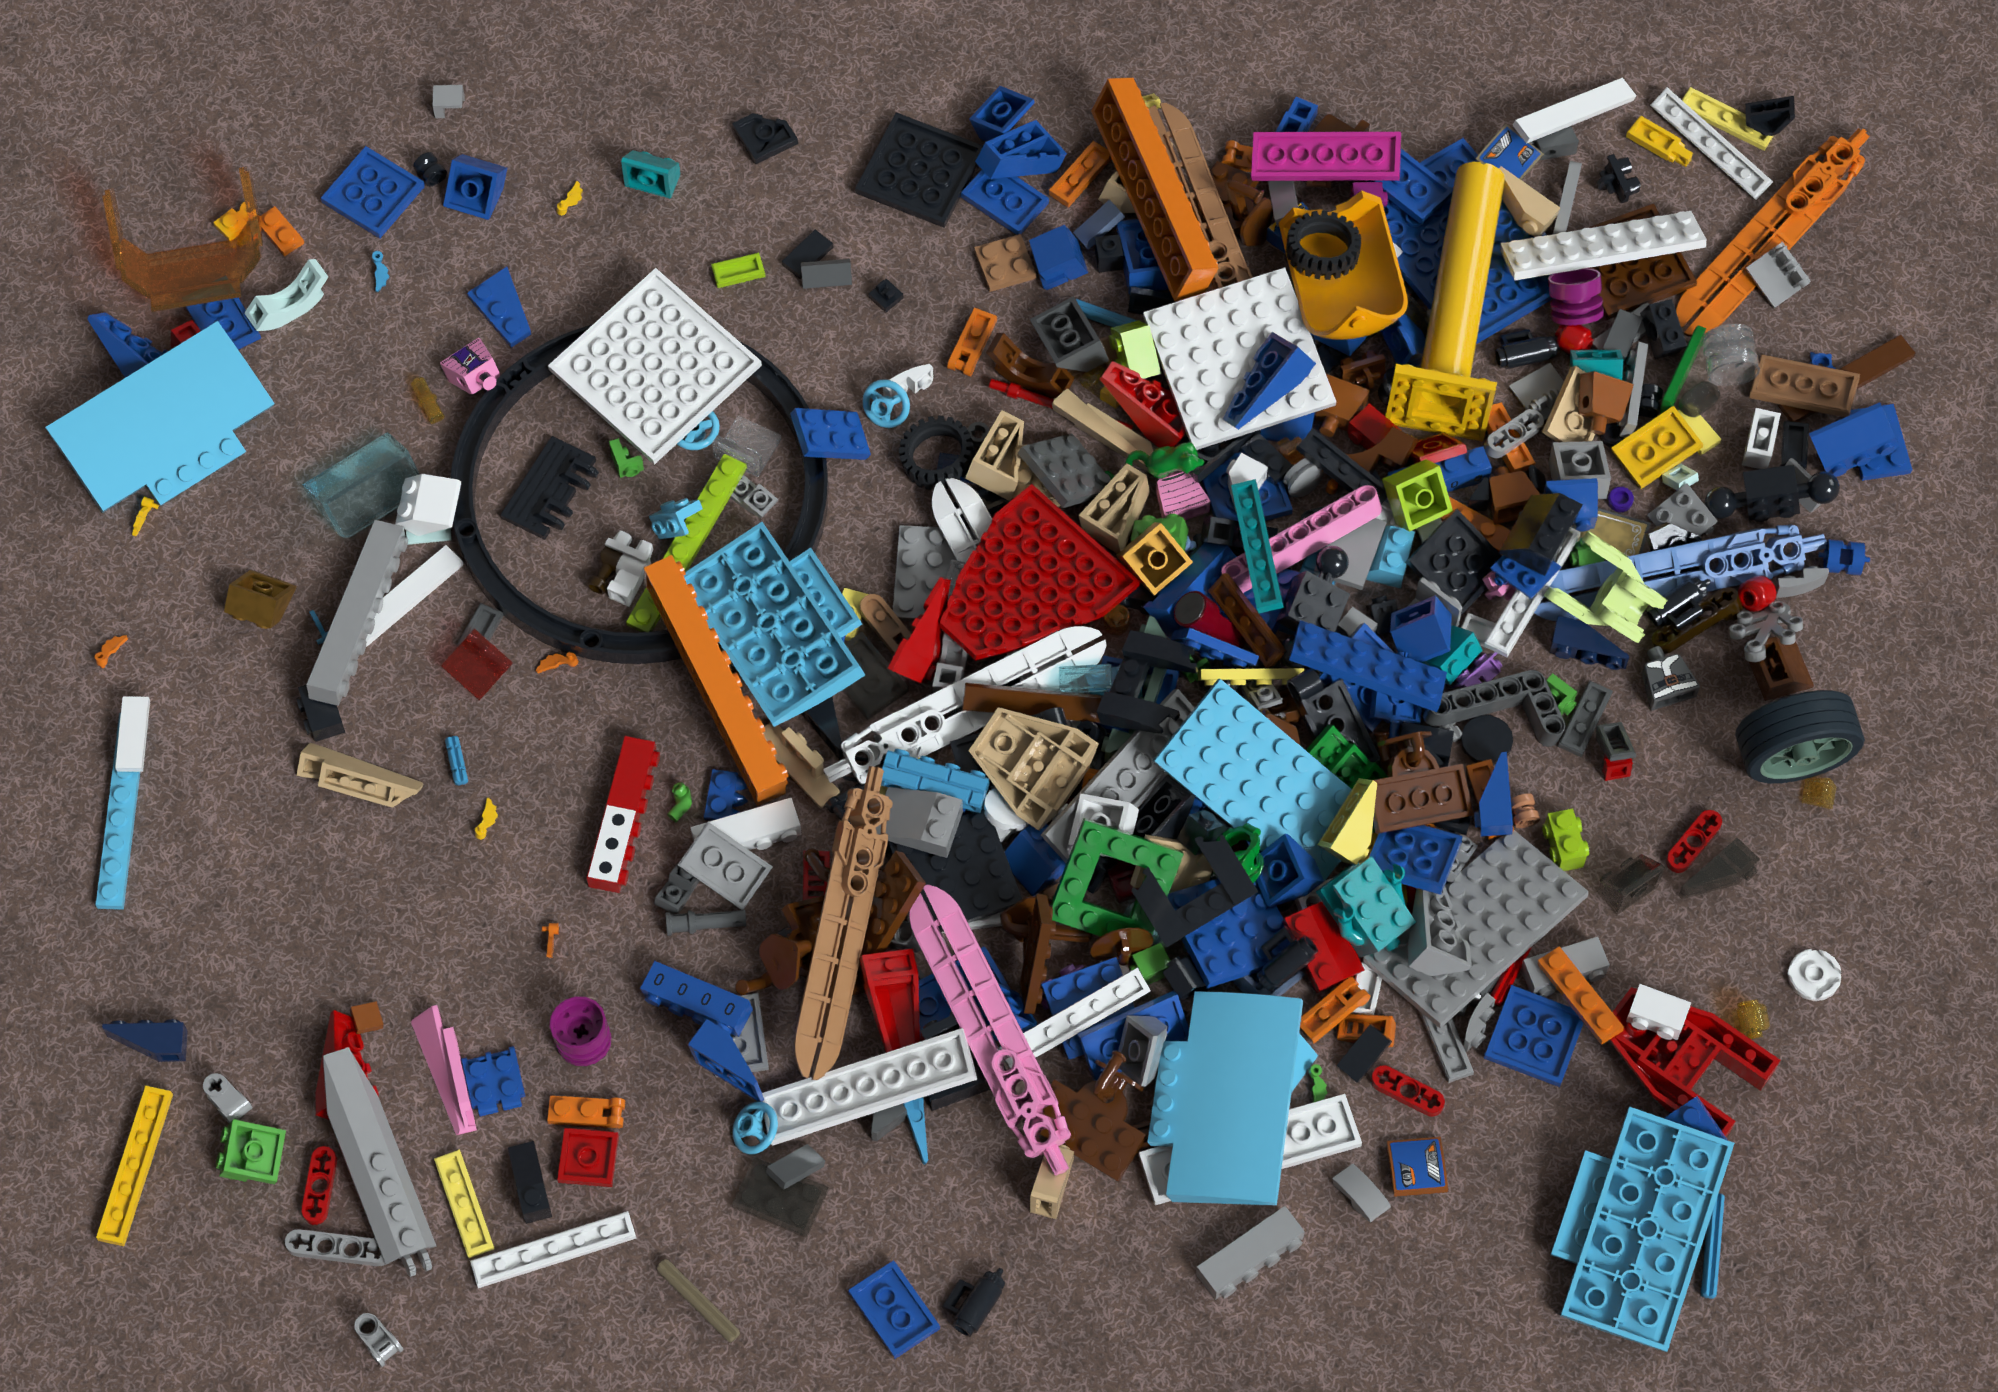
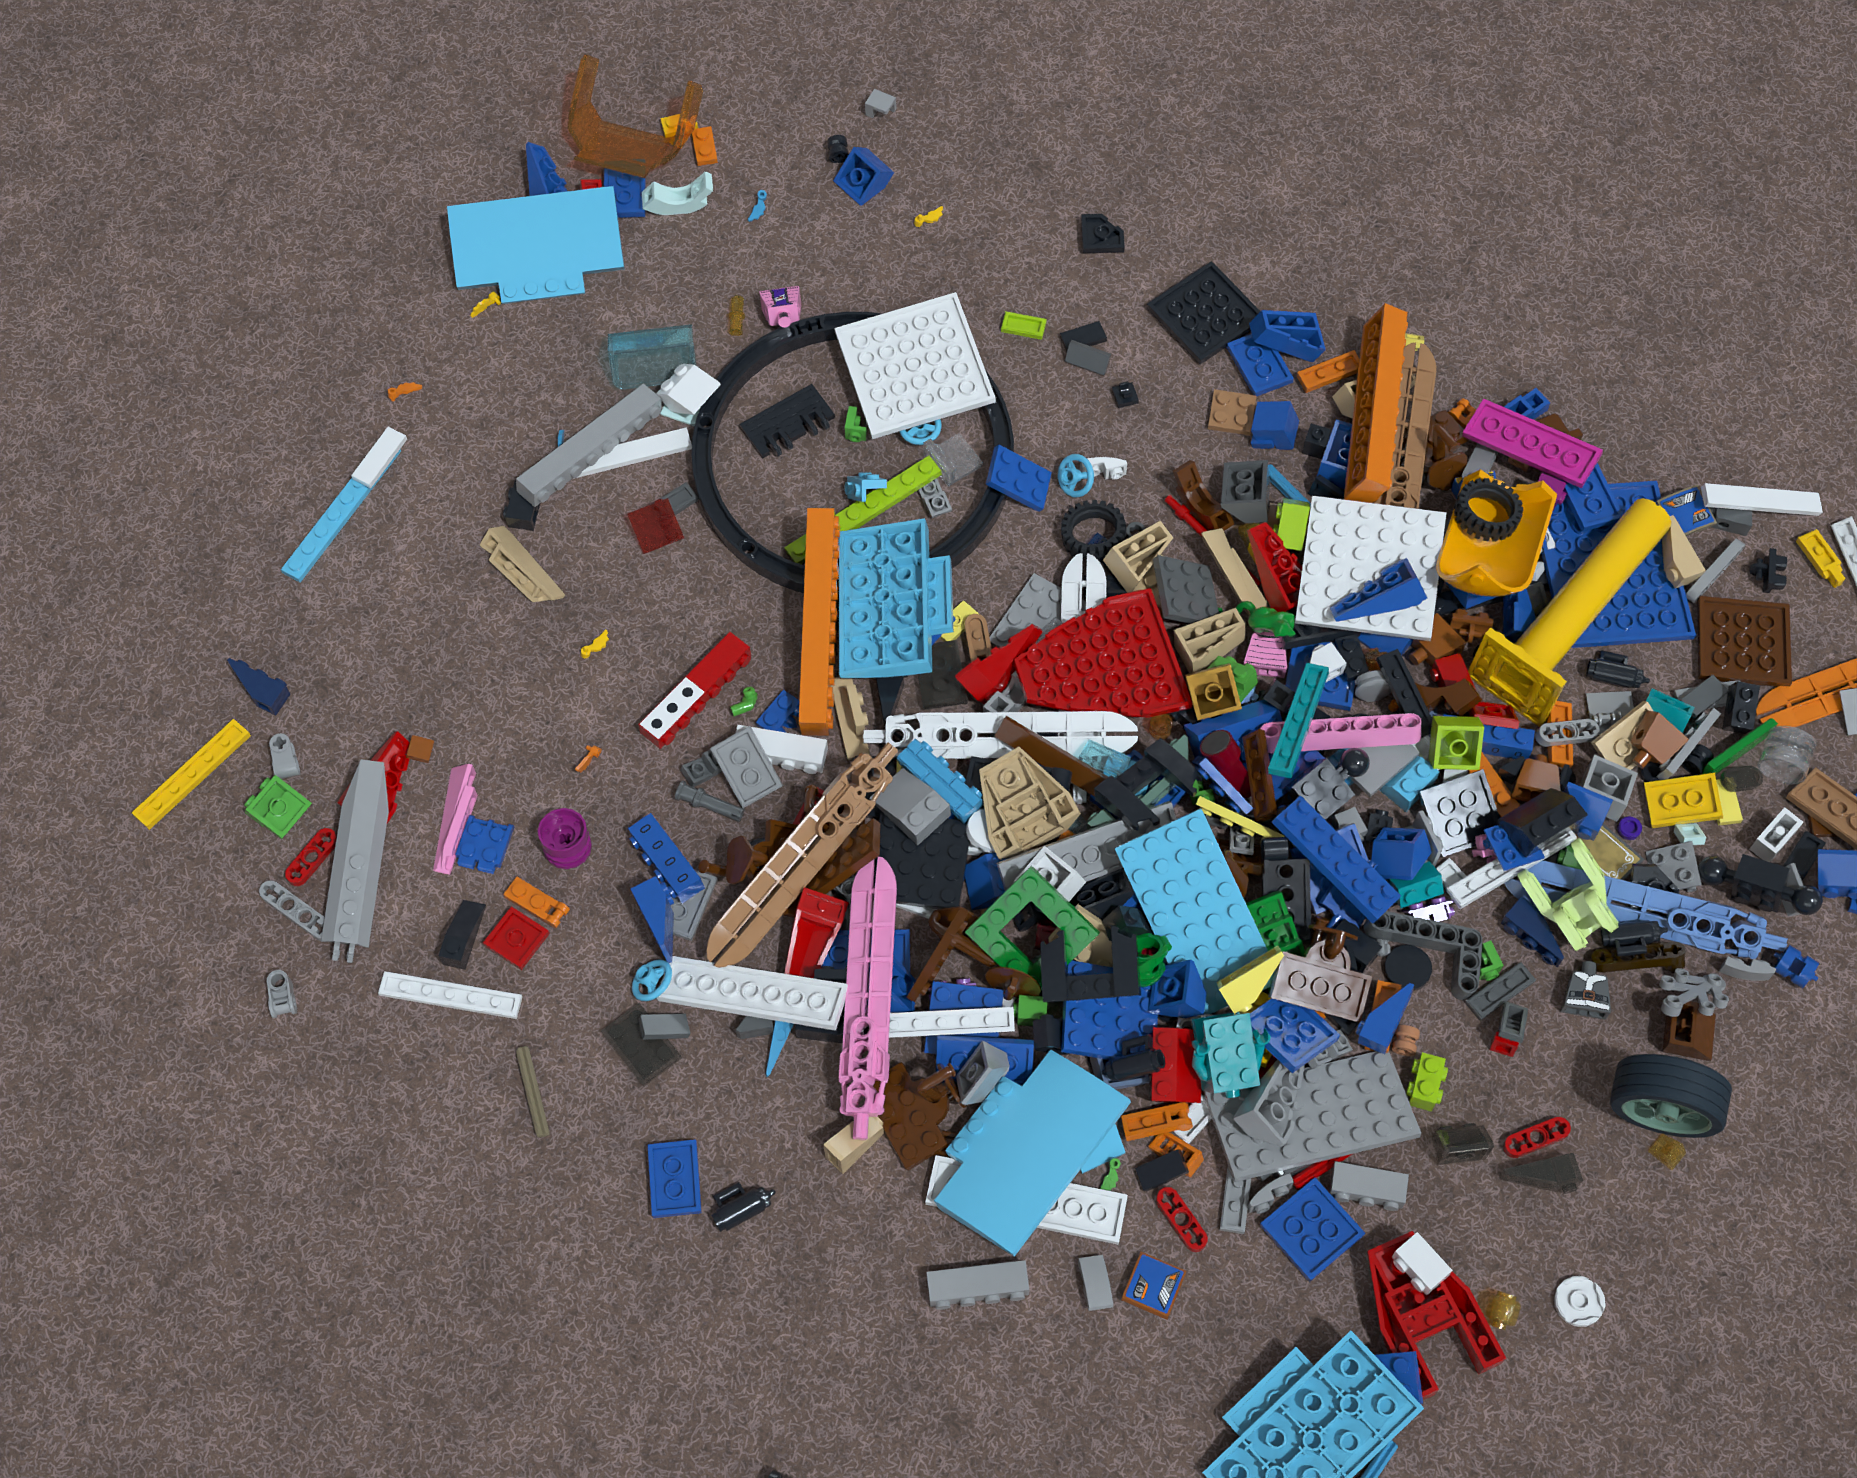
camera: 30 degrees right, 0 degrees up
(258, 599) = (528, 402): pearl gold slope -> none
(372, 192) = (787, 147): blue plate -> none
(456, 760) = (599, 590): dark azure axle -> none
(464, 1204) = (406, 926): light yellow tile -> none
(501, 307) = (831, 272): blue wing -> none
(555, 660) = (714, 551): orange piece -> none
(626, 563) = (805, 496): white hips -> none
(650, 173) = (997, 223): teal slope -> none
(972, 341) = (1170, 459): orange plate -> none
(1000, 113) = (1291, 295): blue slope -> none
(1094, 731) = (1087, 805): black wheel -> none
(1099, 224) = (1321, 415): sand blue tile -> none
(1573, 338) = (1661, 679): red head -> none
(1576, 297) = (1679, 647): magenta wheel -> none
(1580, 995) = (1365, 1216): orange plate -> none
(1603, 245) = (1726, 617): white plate -> none
(1757, 593) = (1703, 960): red head -> none

